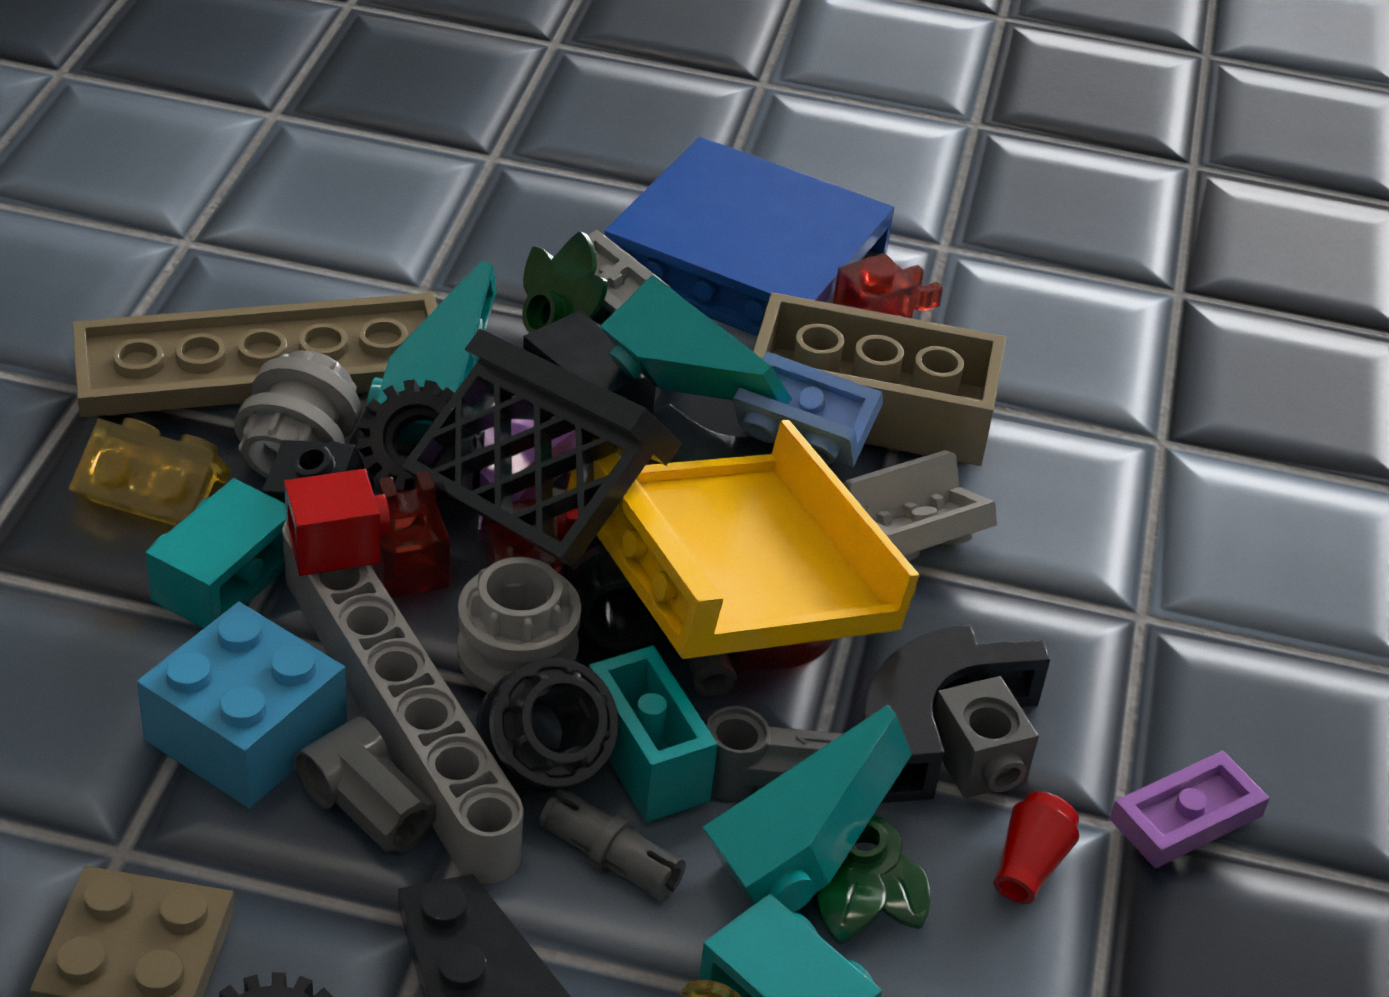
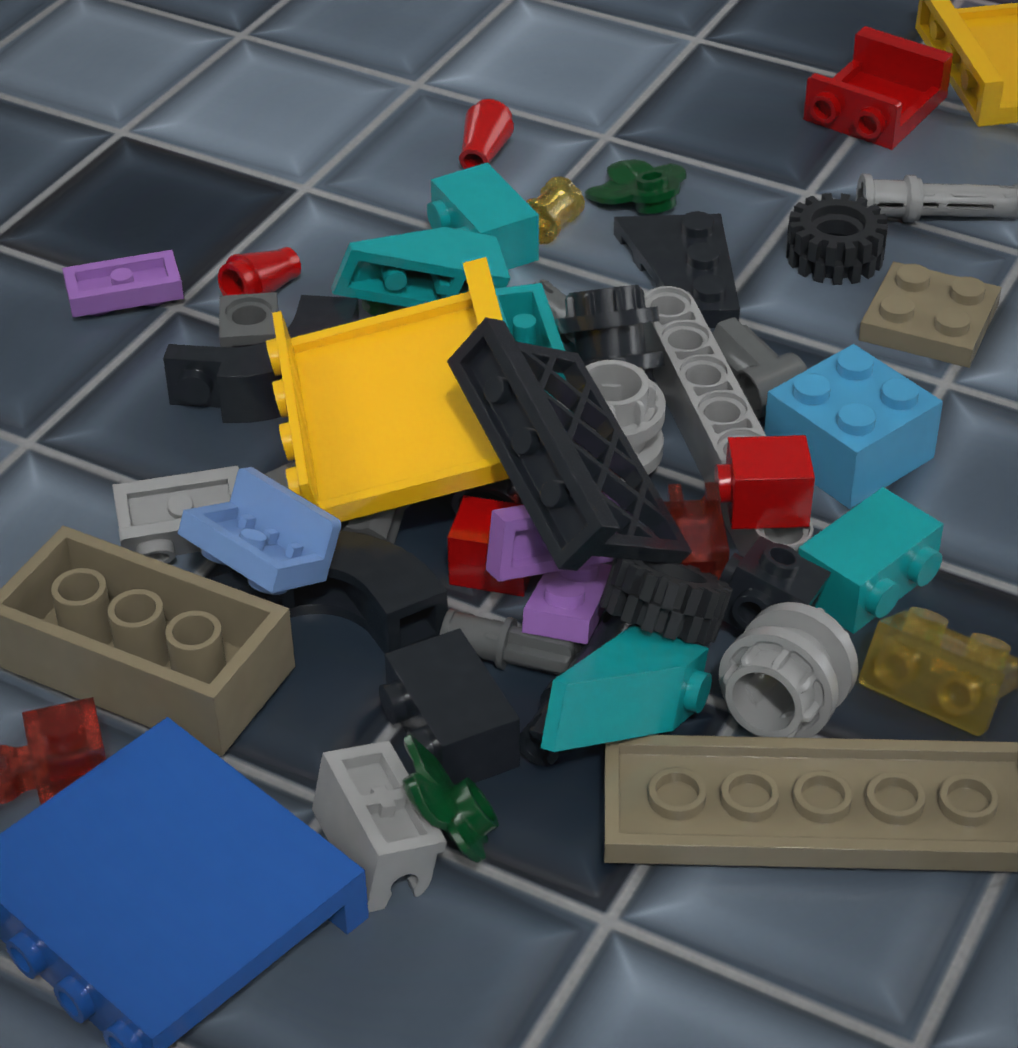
camera: 160 degrees left, 0 degrees up
(684, 349) = (361, 584): teal slope -> none

